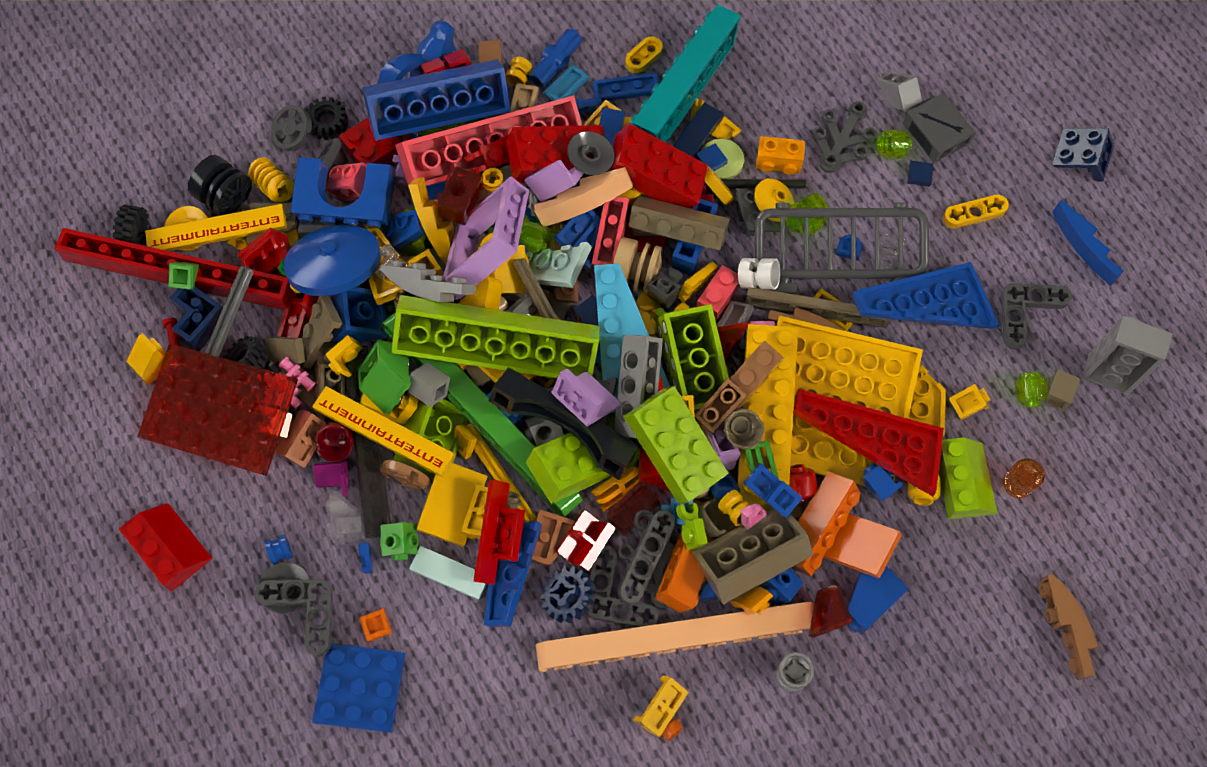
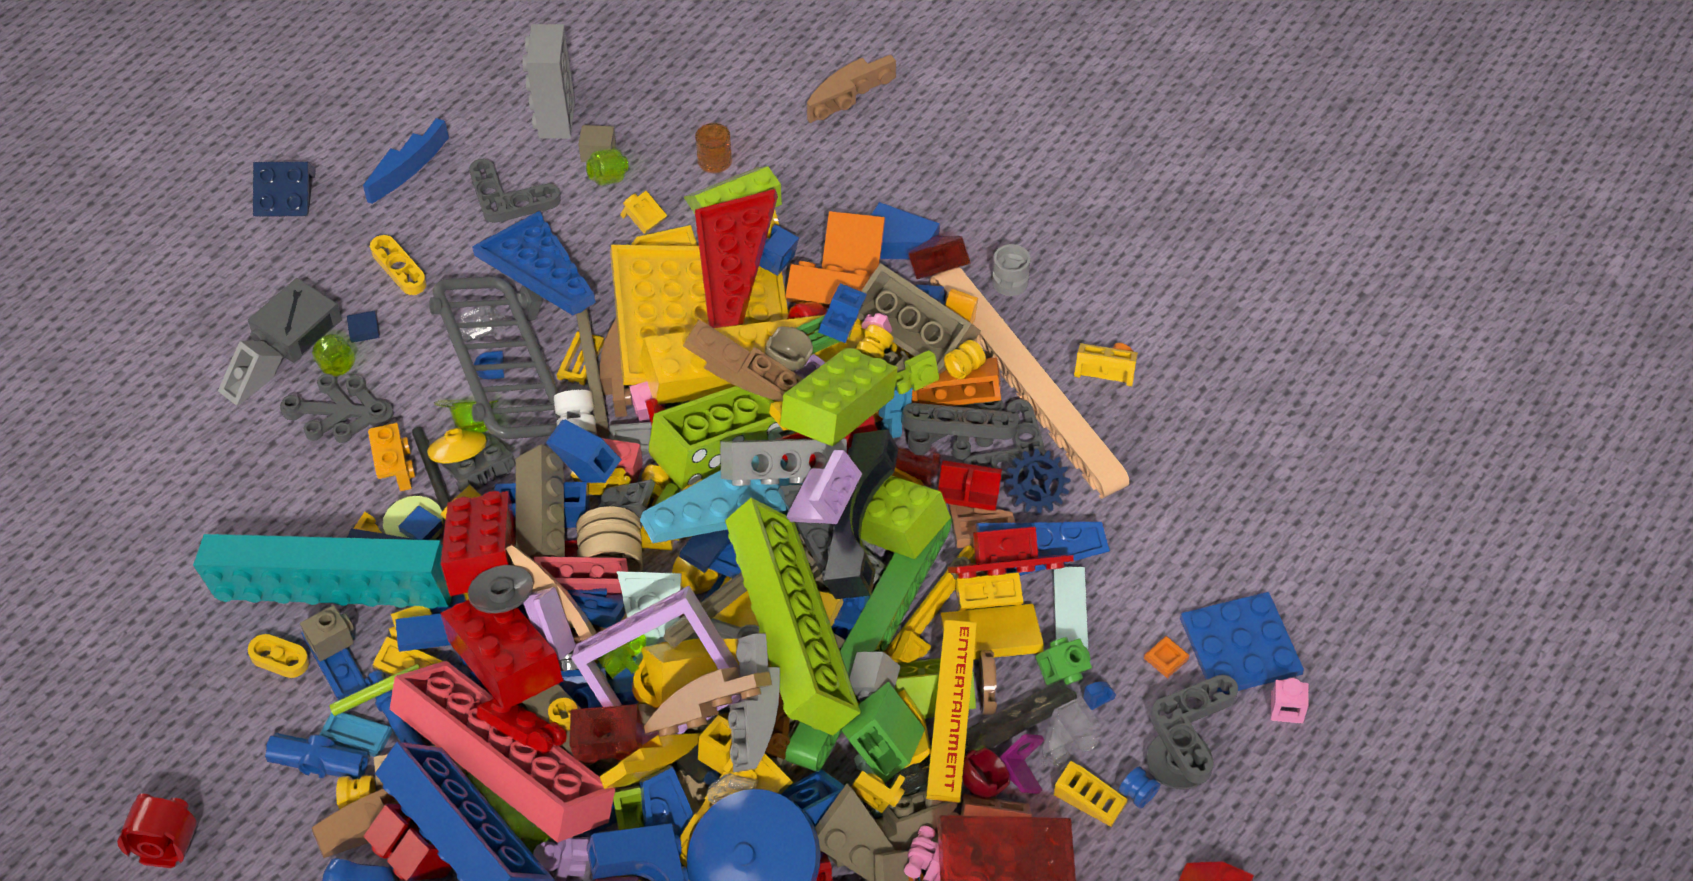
camera: 110 degrees left, 15 degrees down
(289, 693) = (1289, 694): none -> bright pink brick
(296, 502) = (1083, 803): none -> yellow slope
(440, 254) = (702, 697): none -> slope
(584, 96) = (367, 693): none -> lime bar
(641, 78) = (327, 632): none -> dark tan brick
(694, 577) = (964, 359): none -> yellow wheel
(708, 257) = (583, 452): none -> blue slope

